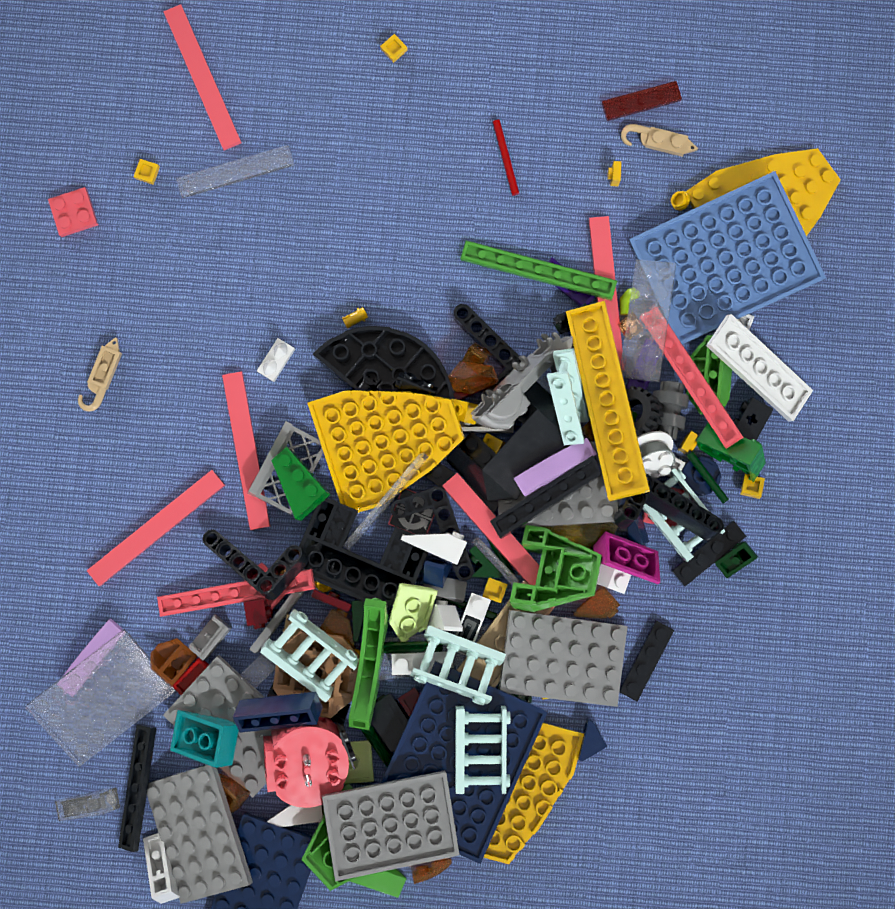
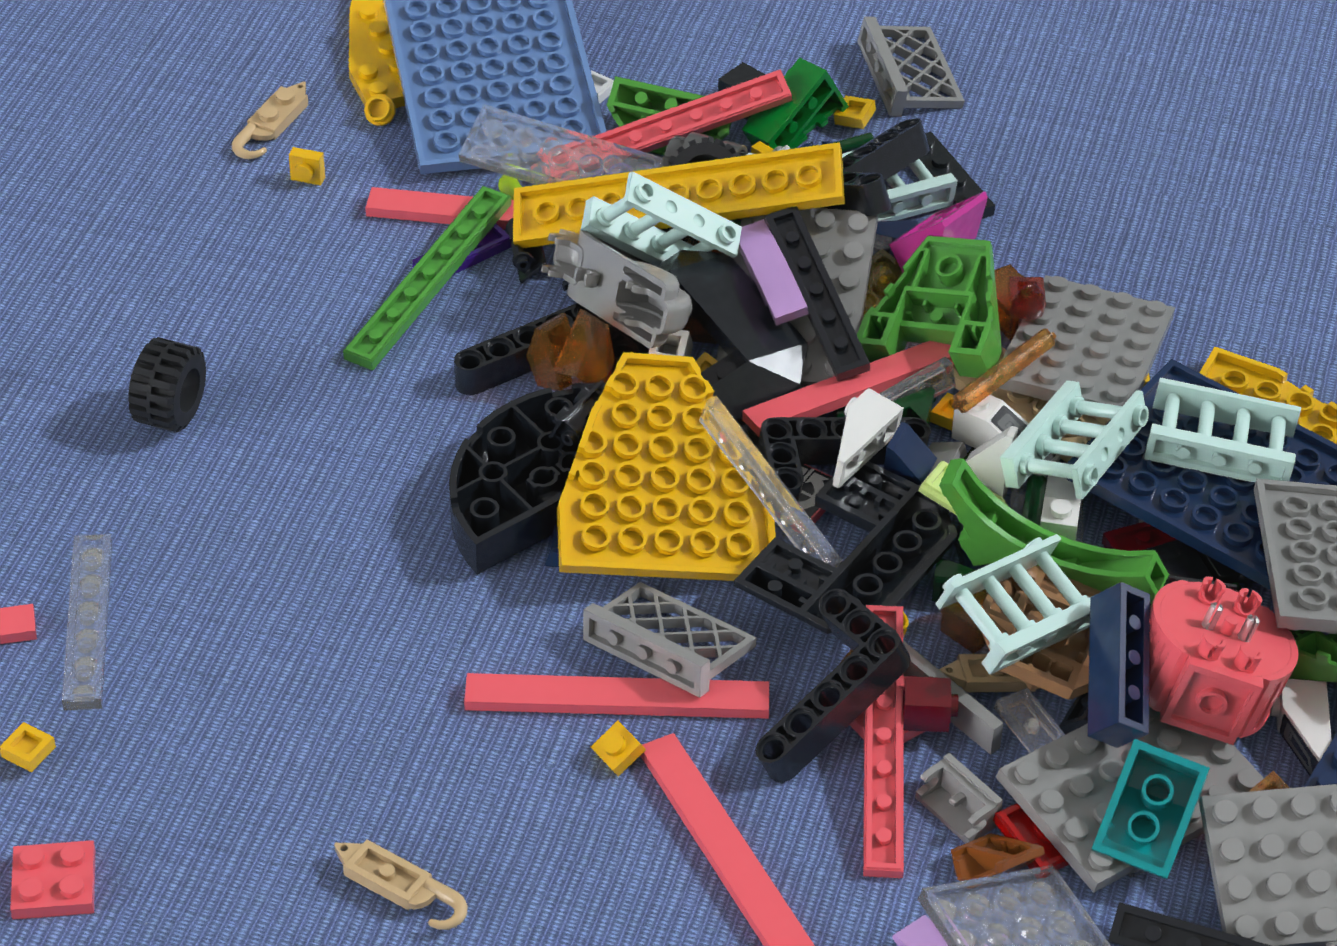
camera: 80 degrees left, 40 degrees down
(207, 459) = (618, 748): none -> yellow plate
(276, 360) = (461, 626): white tile -> none
(299, 484) = (705, 591): green wedge -> none
(332, 599) = (923, 617): dark red plate -> none
(355, 317) = (422, 499): yellow pin -> none
(398, 155) = (167, 384): none -> black tyre
(503, 617) = (1003, 370): none -> clear orange axle
(505, 157) = (221, 286): red bar -> none
(583, 620) = (1026, 297): none -> clear red plate
(591, 742) = (1224, 333): dark blue slope -> none
(641, 101) = (199, 128): clear red tile -> none
(646, 660) = (1104, 266): black plate -> none
(736, 559) = (963, 136): dark green slope -> none
(759, 367) = (674, 59): white plate -> none
(803, 496) = (887, 69): none -> light grey fence

